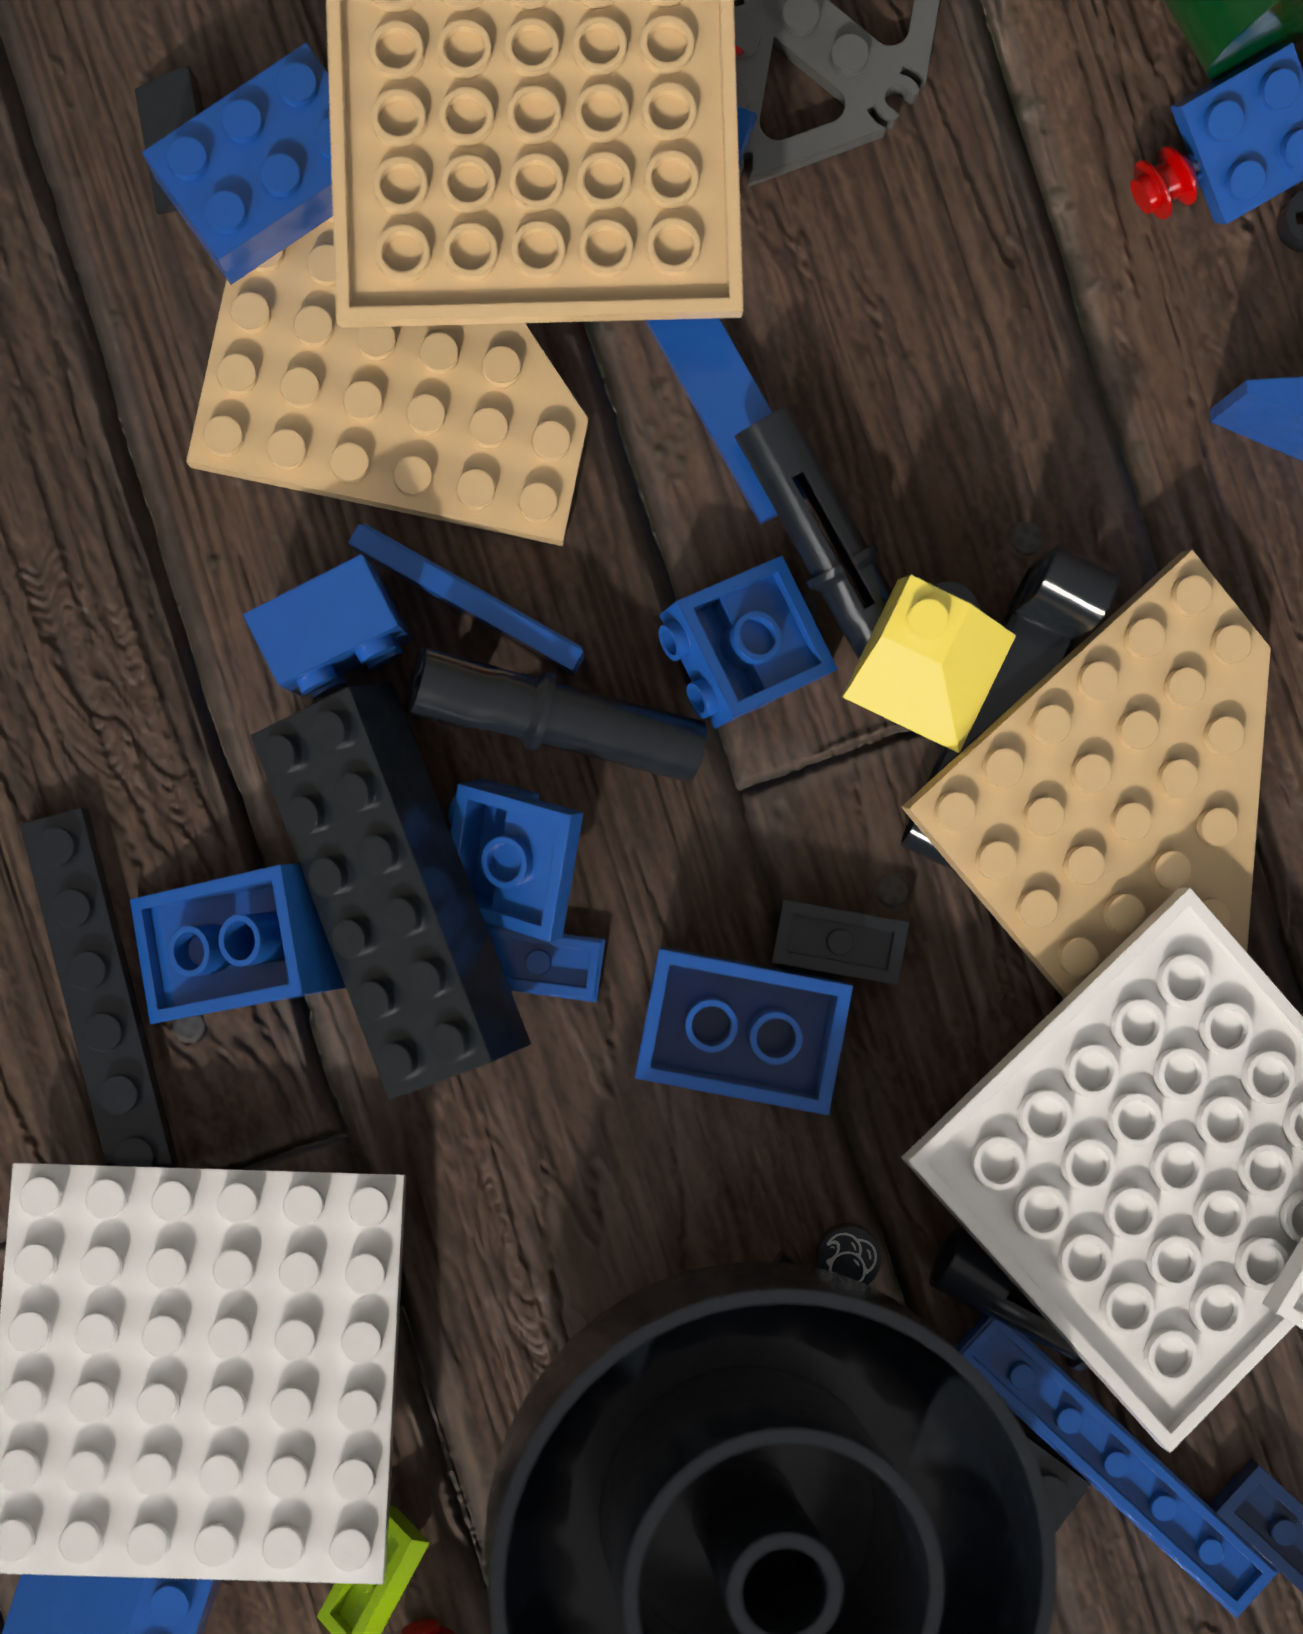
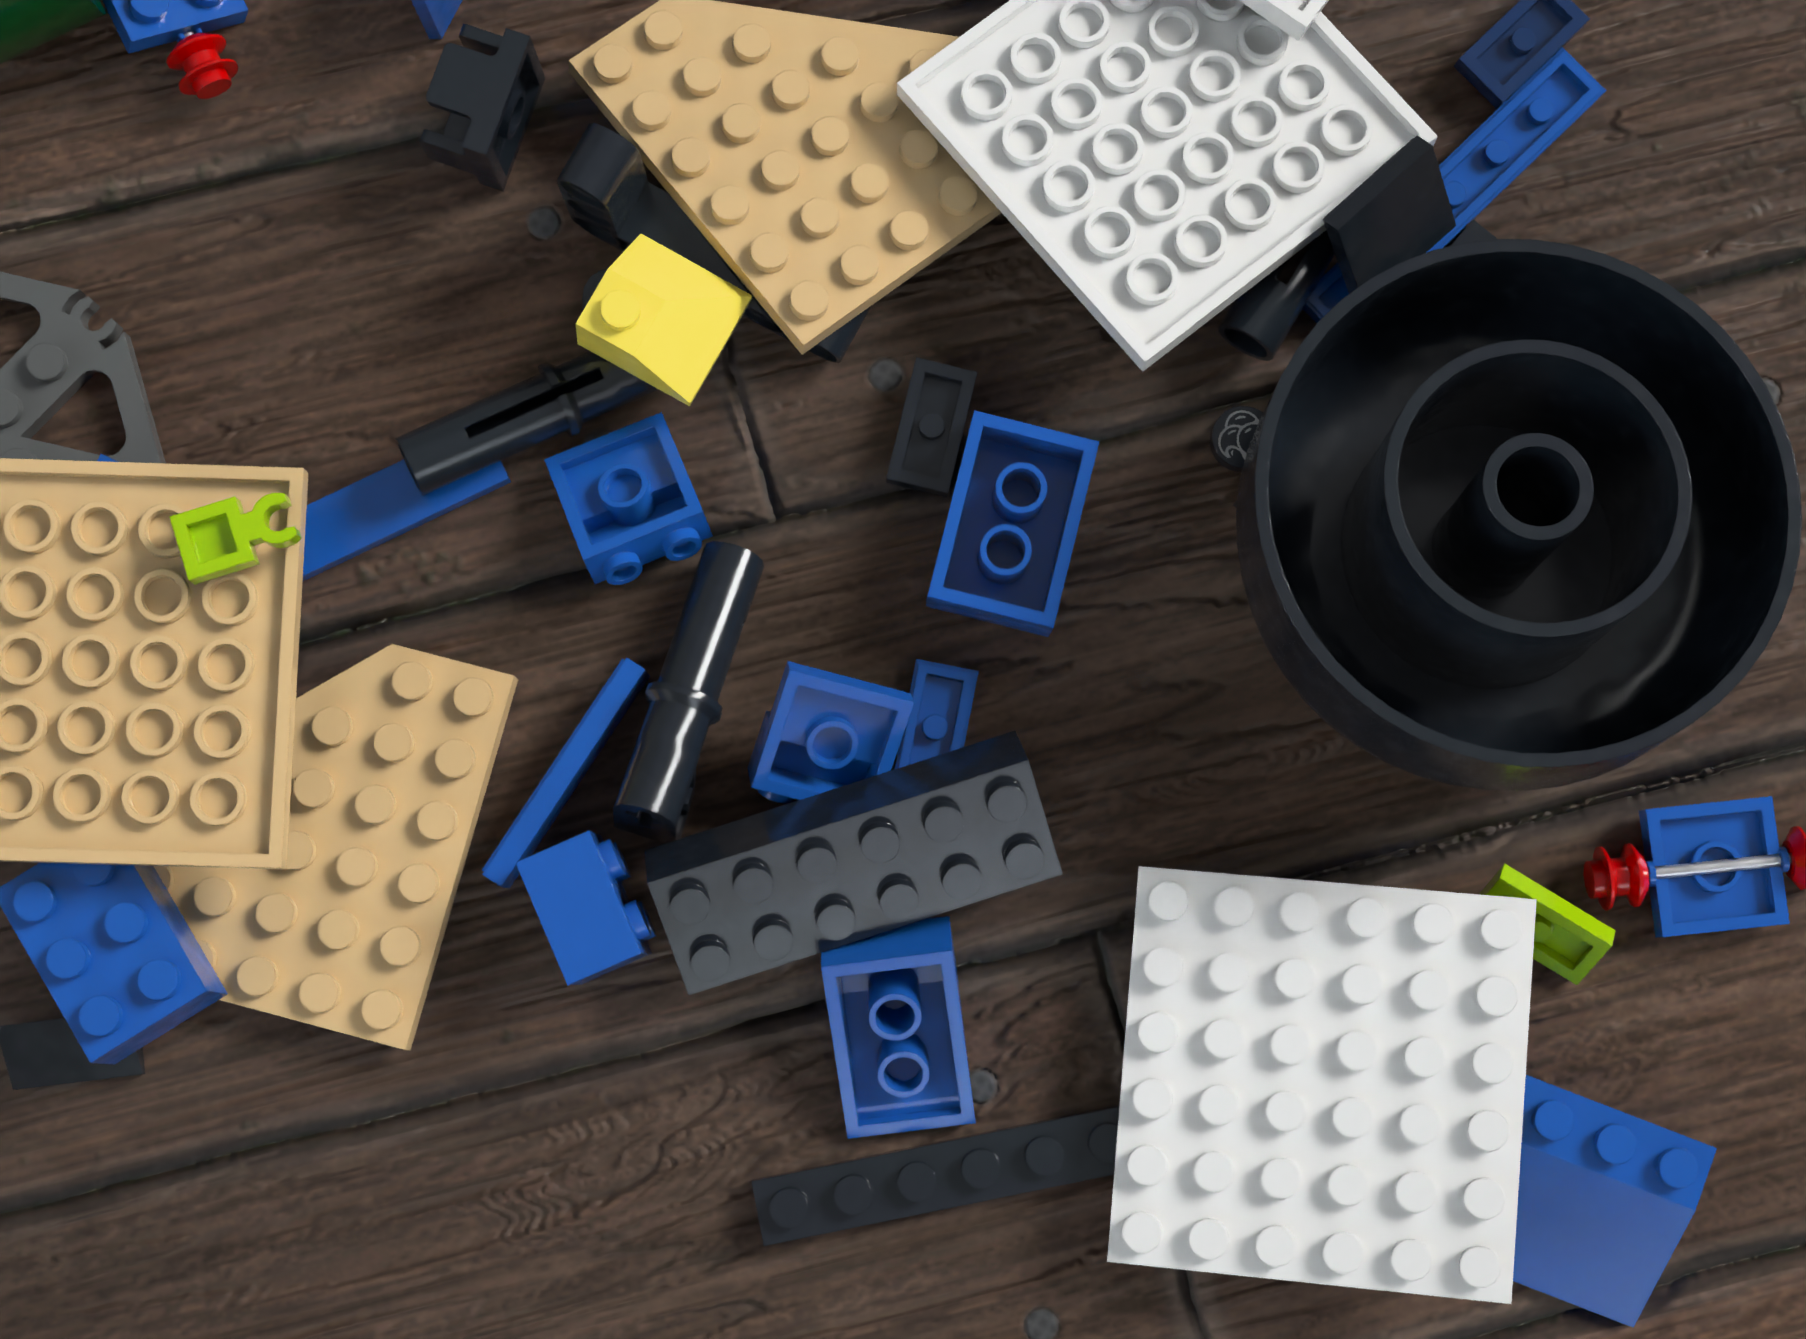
camera: 90 degrees left, 5 degrees down
(662, 235) = (223, 537): none -> lime plate
(1079, 1404) = (1391, 215): none -> black tile
(1147, 471) = (490, 97): none -> black panel

